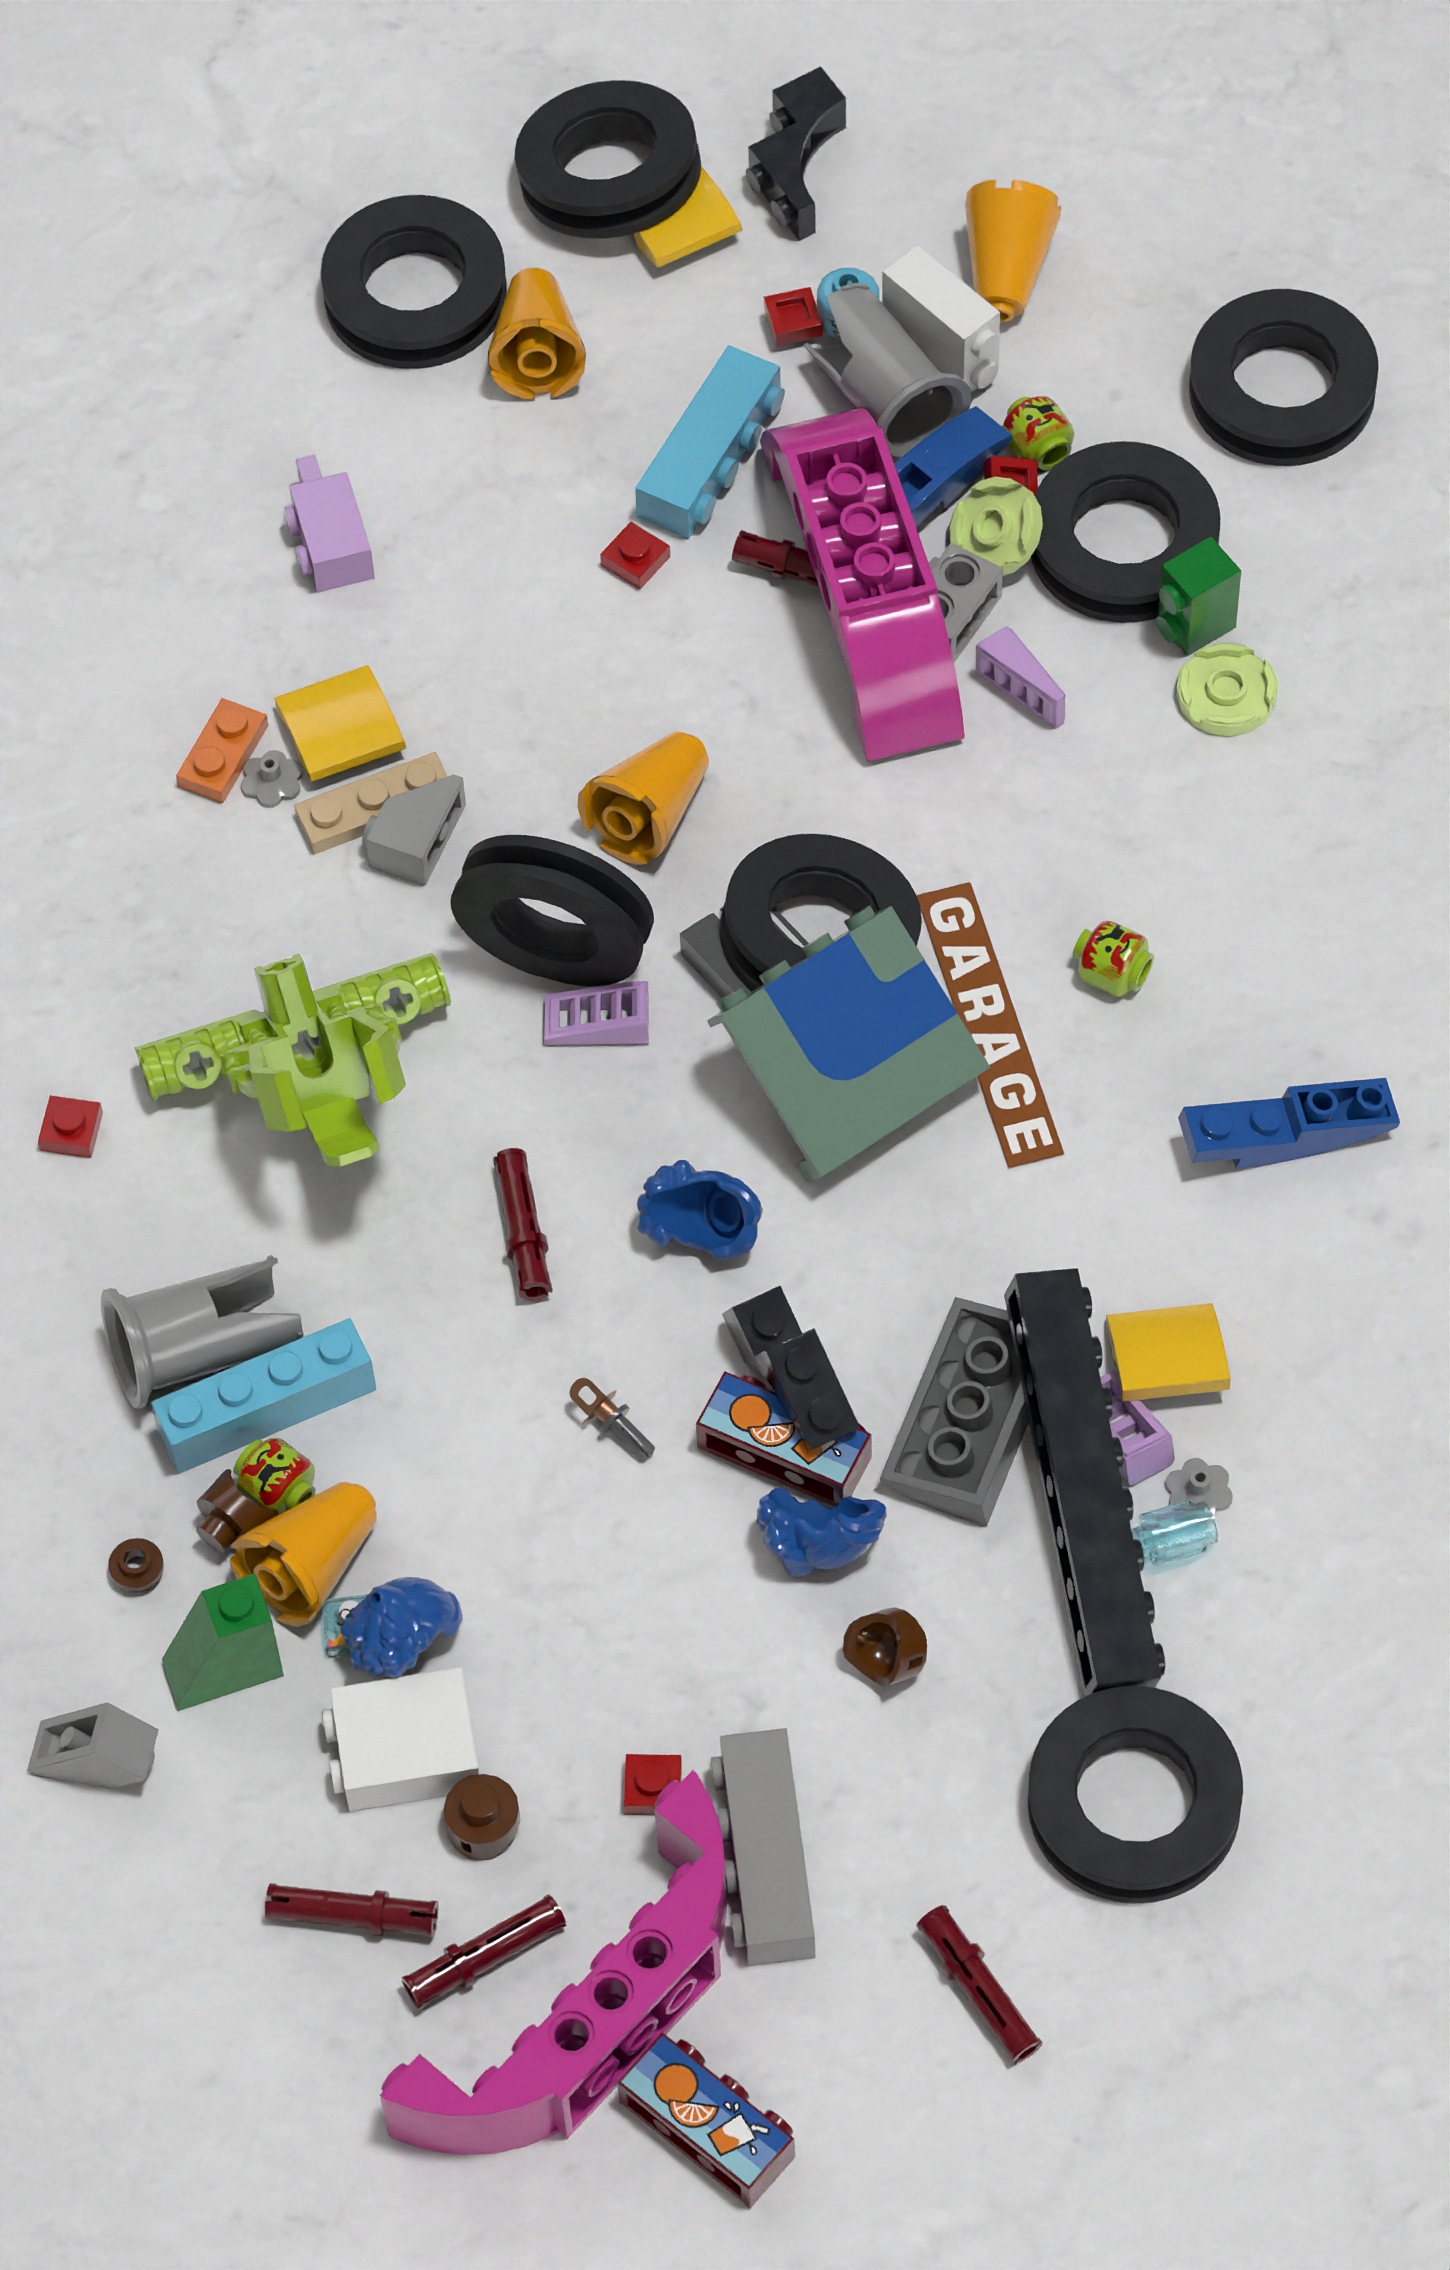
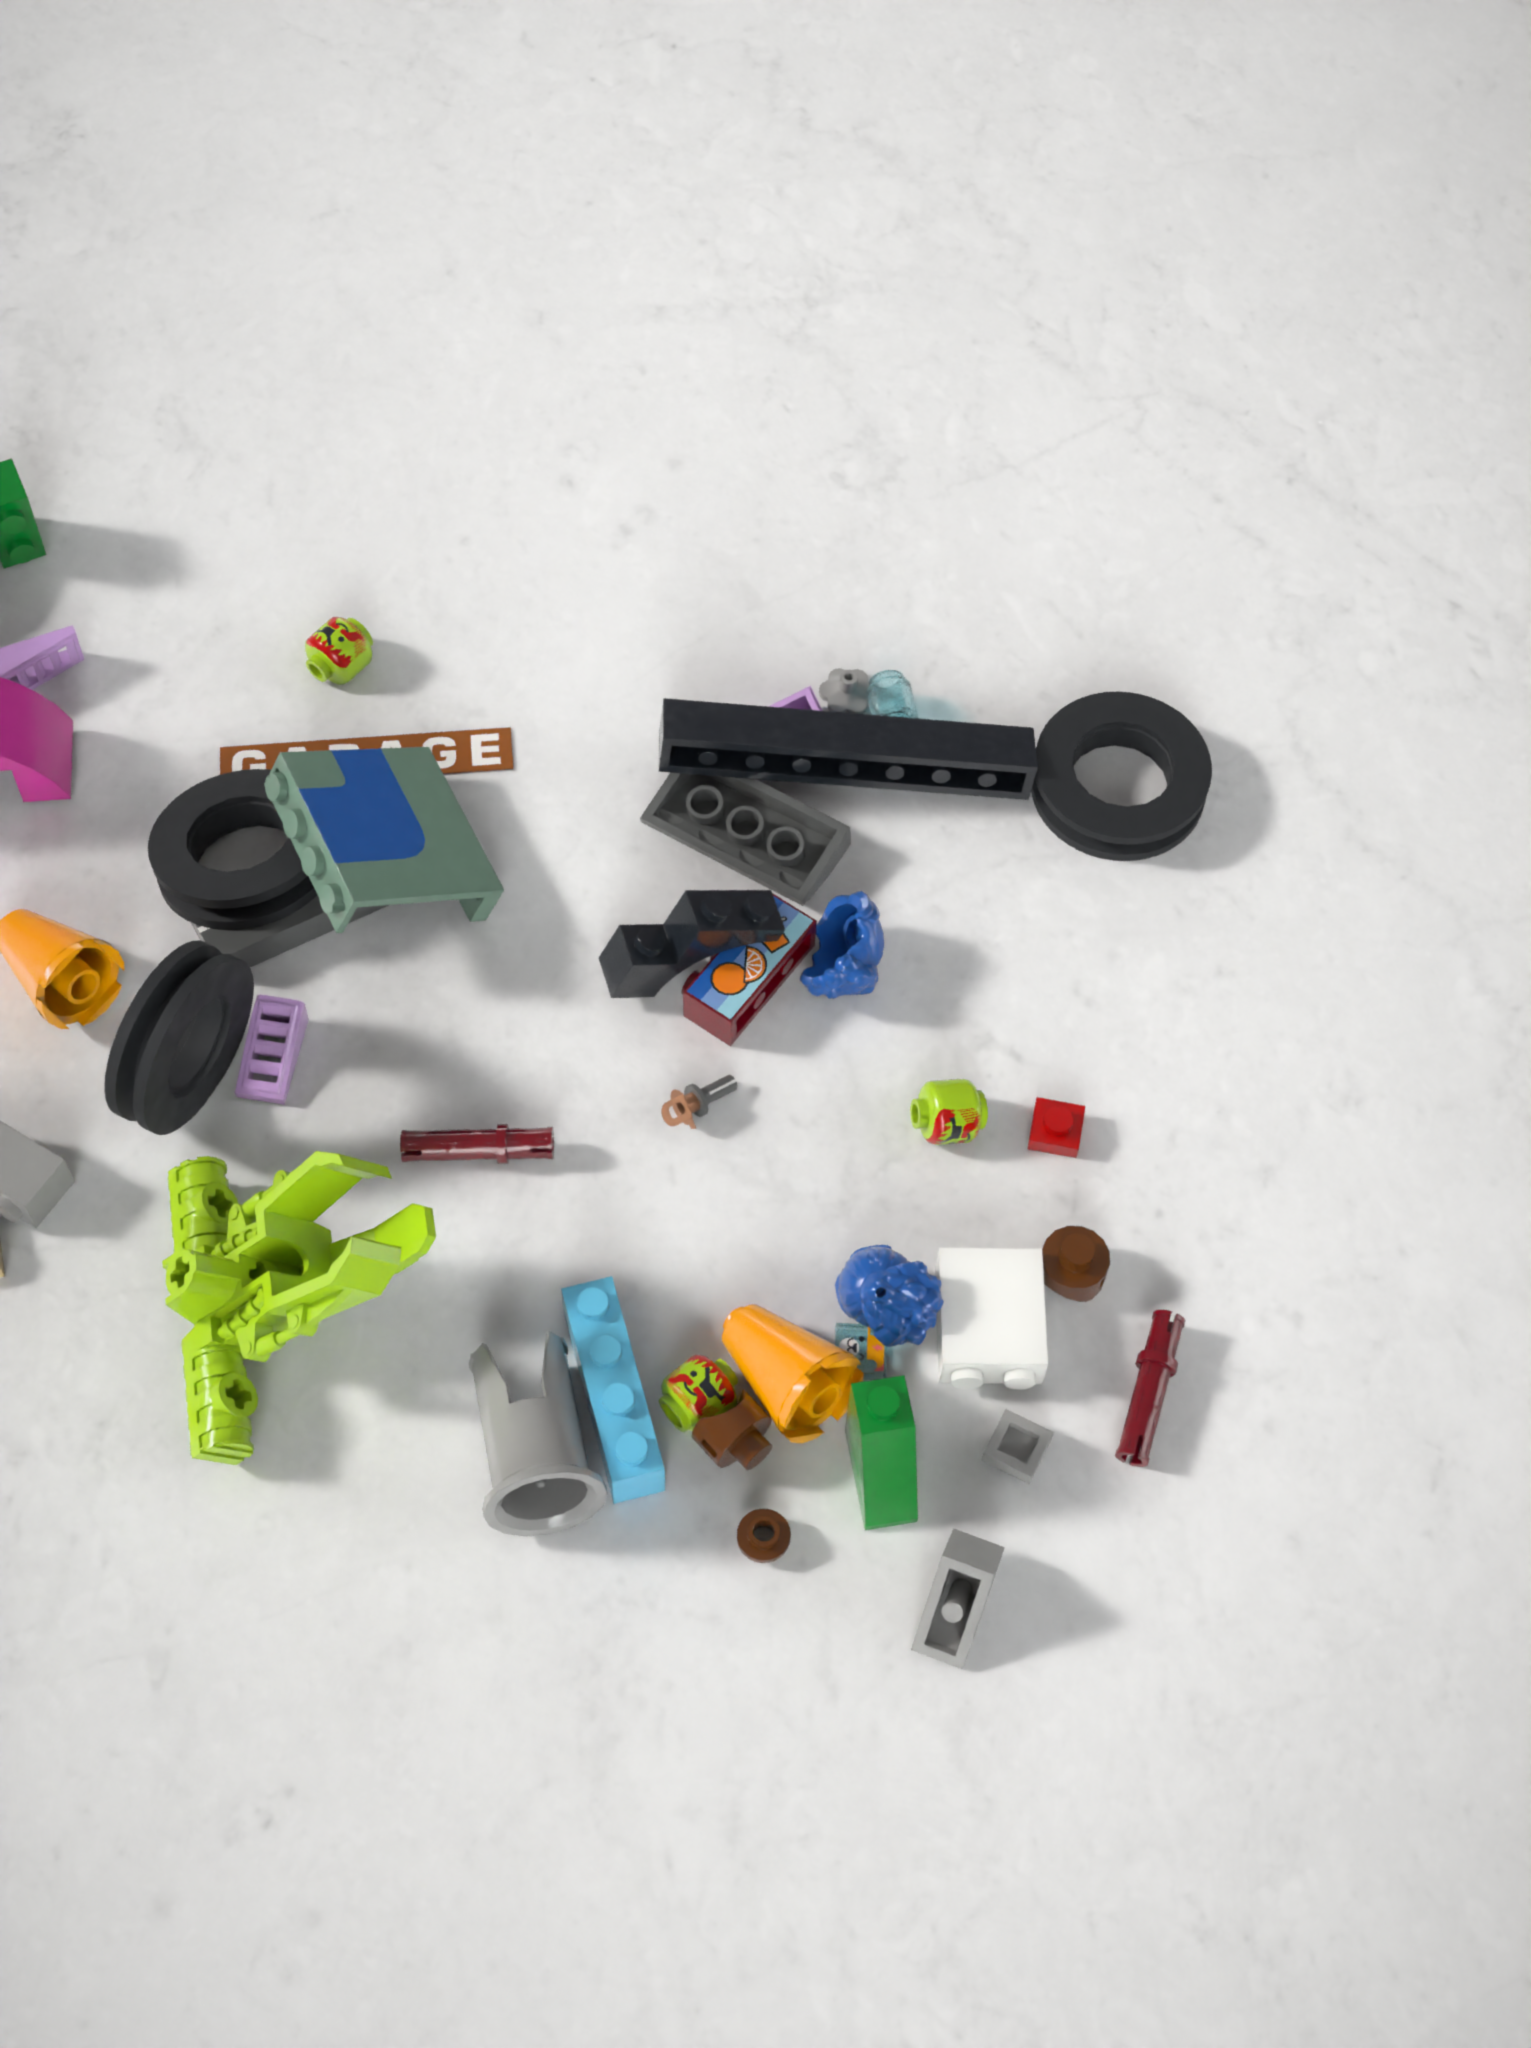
camera: 85 degrees left, 0 degrees up
(70, 1126) = (253, 1542): red plate -> none
(264, 1786) = (1017, 1446): none -> light grey plate
(470, 1959) = (1212, 1300): dark red pin -> none
(596, 2027) = (1284, 1167): dark pink slope -> none
(642, 1665) = (949, 1111): none -> lime head
(699, 1210) = (511, 988): blue hair -> none
(707, 2118) = (1378, 1127): brick -> none
(766, 1847) = (1135, 1043): light grey brick -> none
(890, 1650) = (967, 919): reddish brown piece -> none
(965, 1965) = (1225, 929): dark red pin -> none
(1168, 1352) = (726, 670): yellow slope -> none
(1226, 689) = (93, 531): yellowish green tile -> none
(1288, 1128) = (534, 558): blue slope -> none

